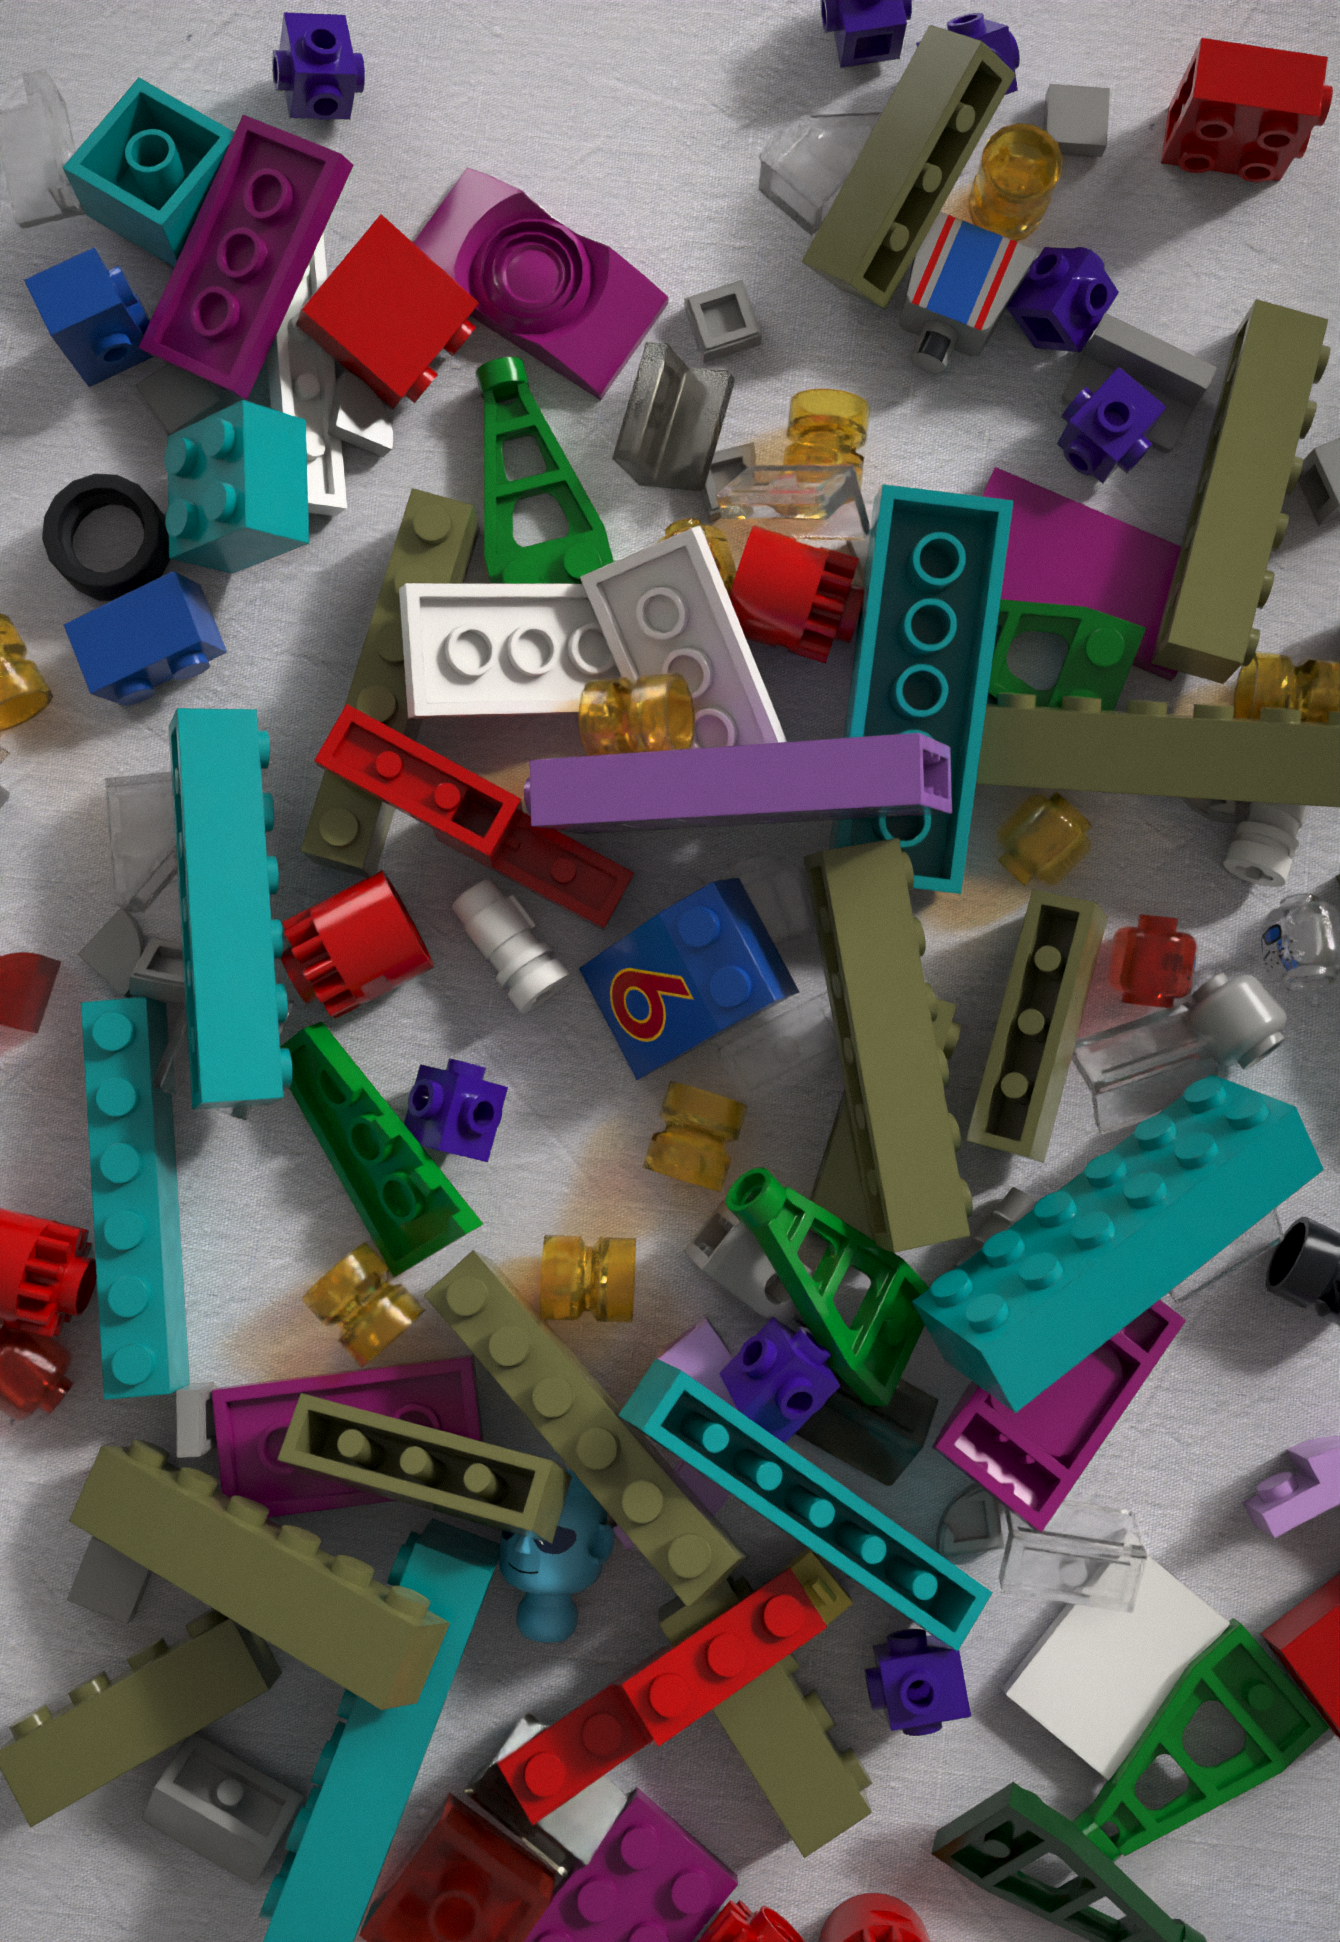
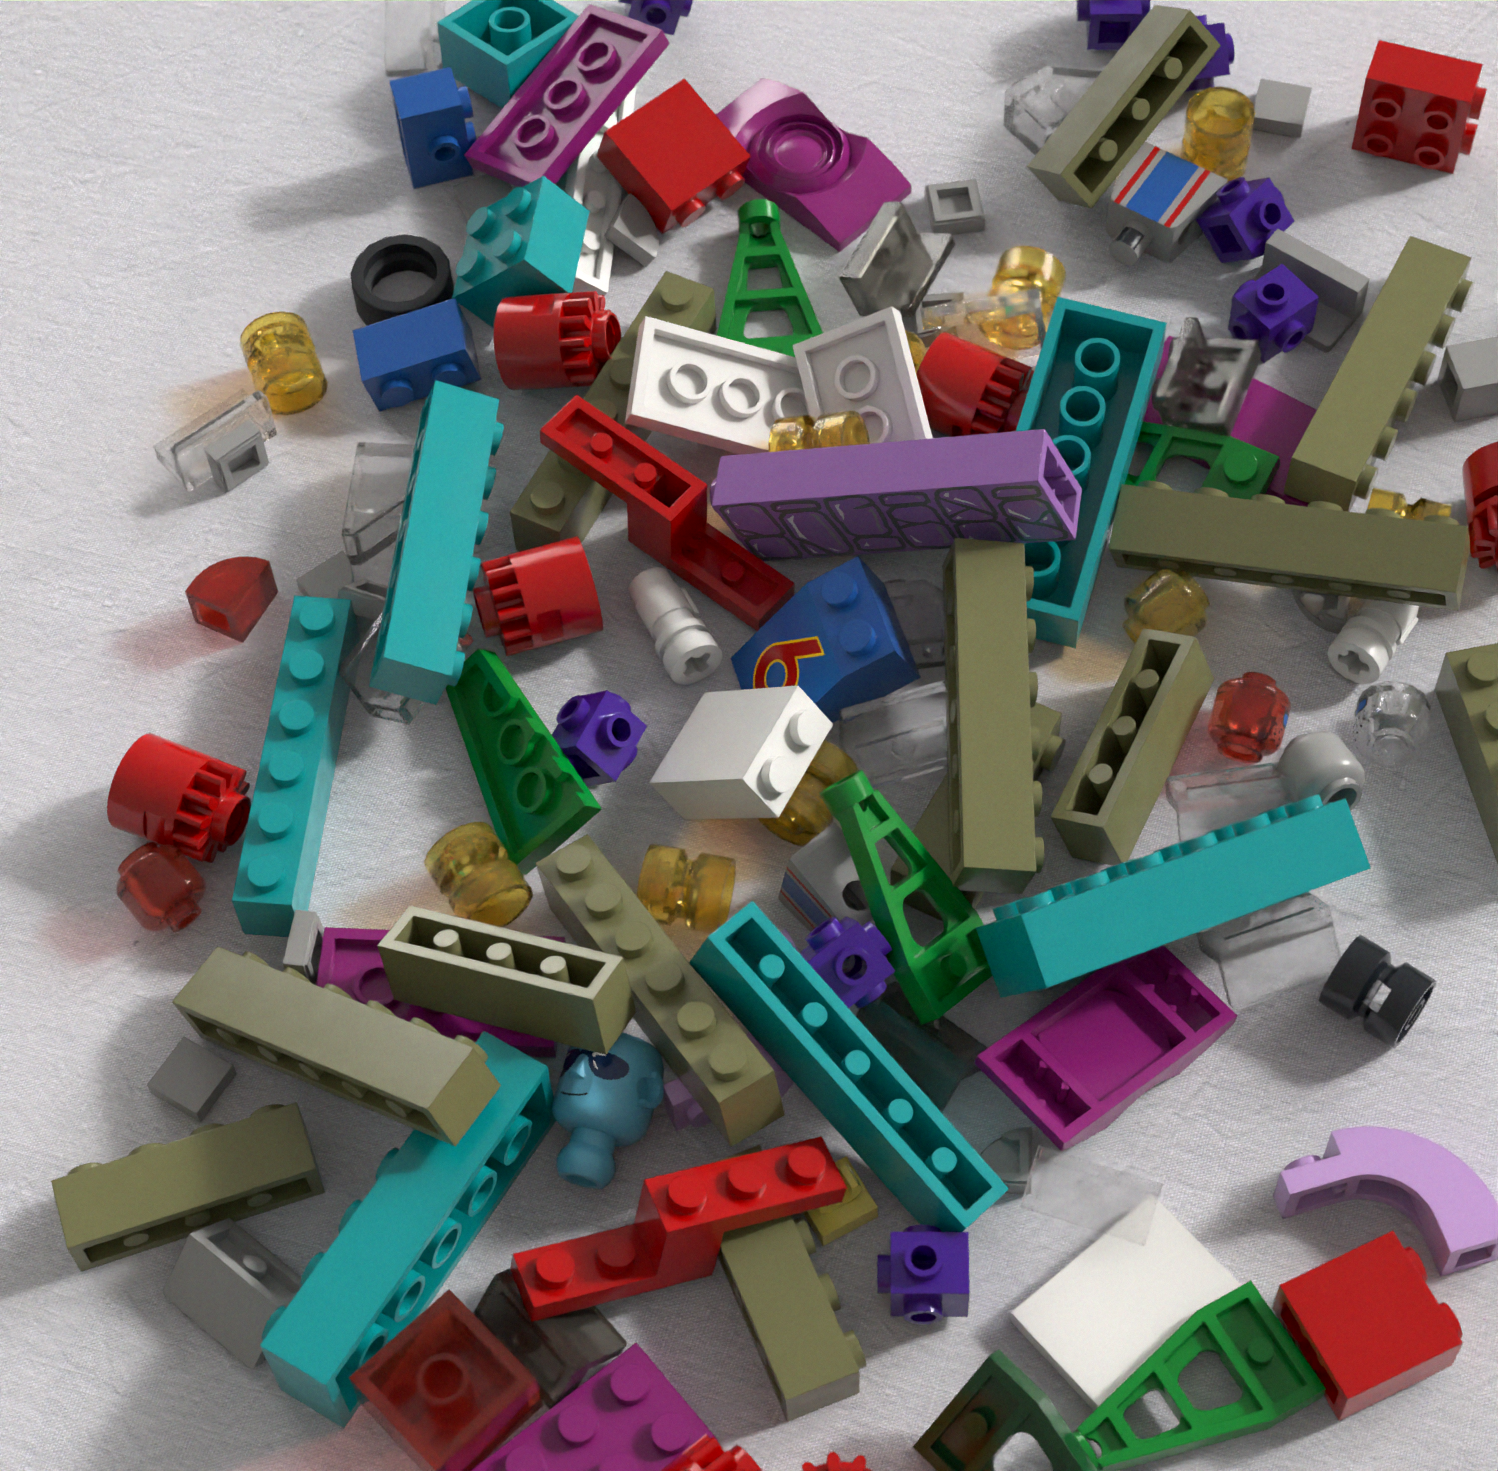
camera: 15 degrees right, 25 degrees down
(301, 602) = (553, 339): none -> red gear
(621, 1120) = (741, 753): none -> white brick
(1053, 538) = (1204, 380): none -> clear smoke bracket

